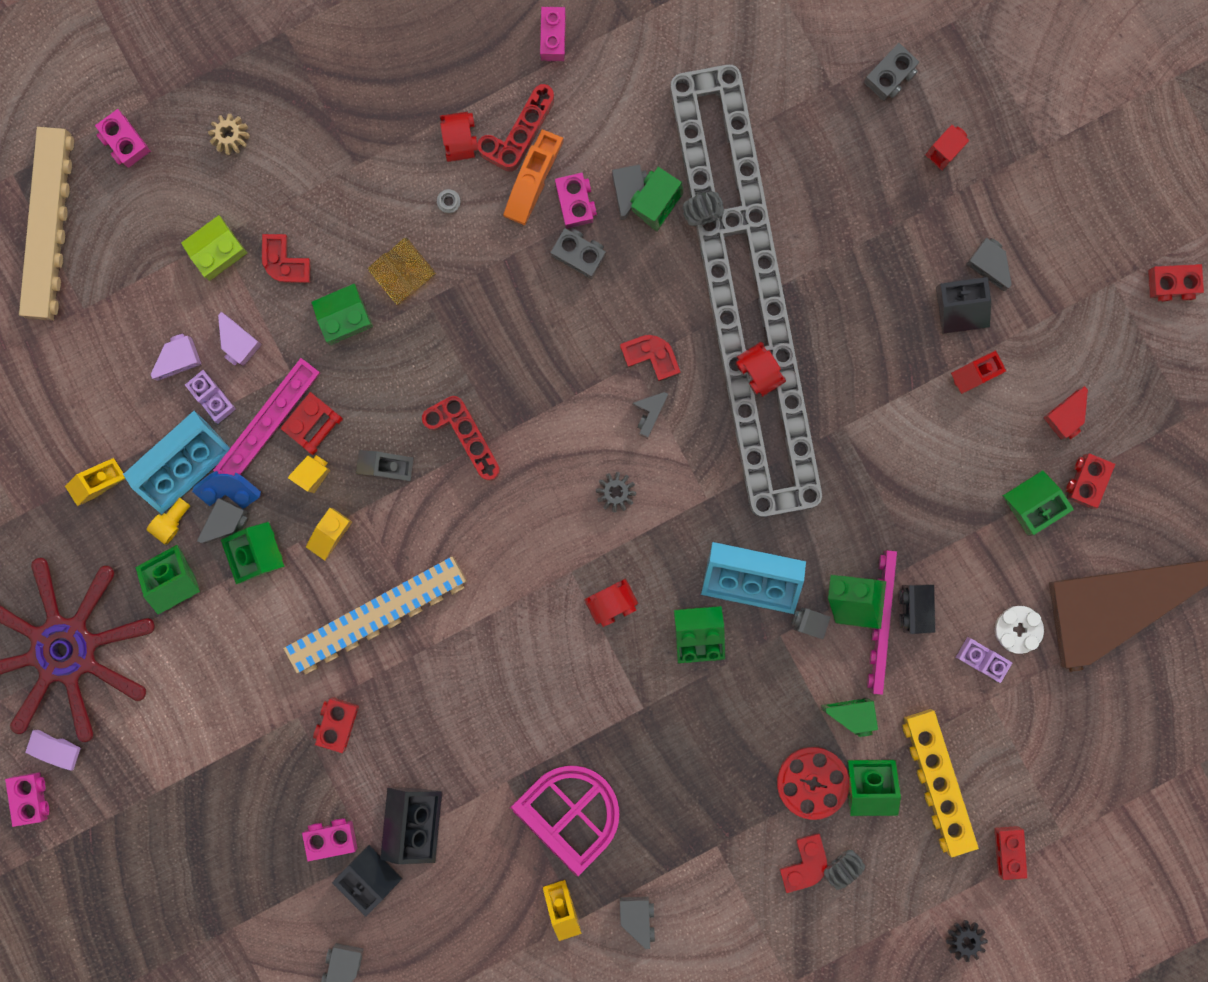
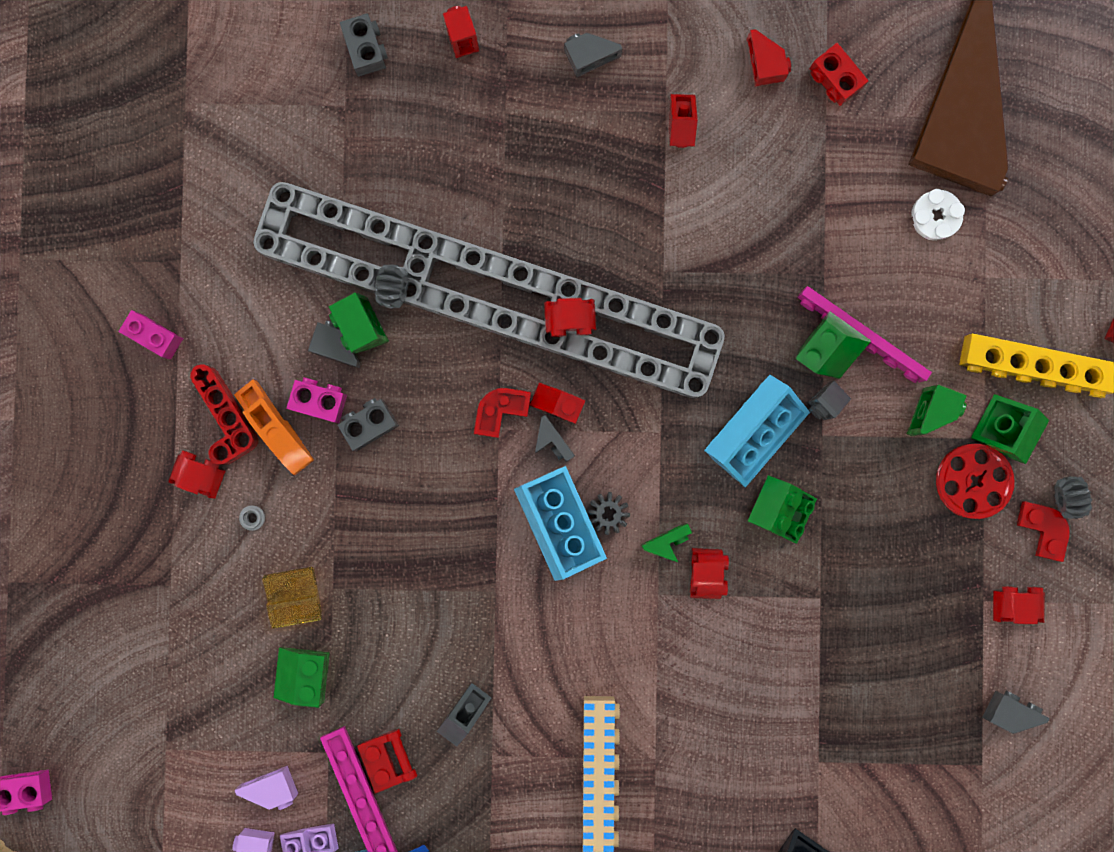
camera: 60 degrees left, 0 degrees up
(213, 248) = (172, 762): lime slope -> none
(229, 125) = (63, 688): tan gear -> none
(278, 265) = (223, 709): red plate -> none
(310, 473) = (433, 790): yellow slope -> none
(328, 533) = (497, 801): yellow slope -> none
(467, 440) = (484, 625): red beam -> none
(550, 836) = (892, 752): dark pink window -> none
(561, 910) = (967, 779): yellow slope -> none
(585, 456) = (560, 524): none -> medium azure slope
(614, 549) = (661, 544): none -> green slope
(683, 400) = (557, 403): none -> red slope
(729, 877) = (1019, 606): none -> red cylinder
(918, 609) = (869, 296): black slope -> none
(964, 305) = (614, 98): black slope -> none
(984, 660) = (947, 262): lavender slope -> none
(1037, 503) = (833, 133): green slope -> none

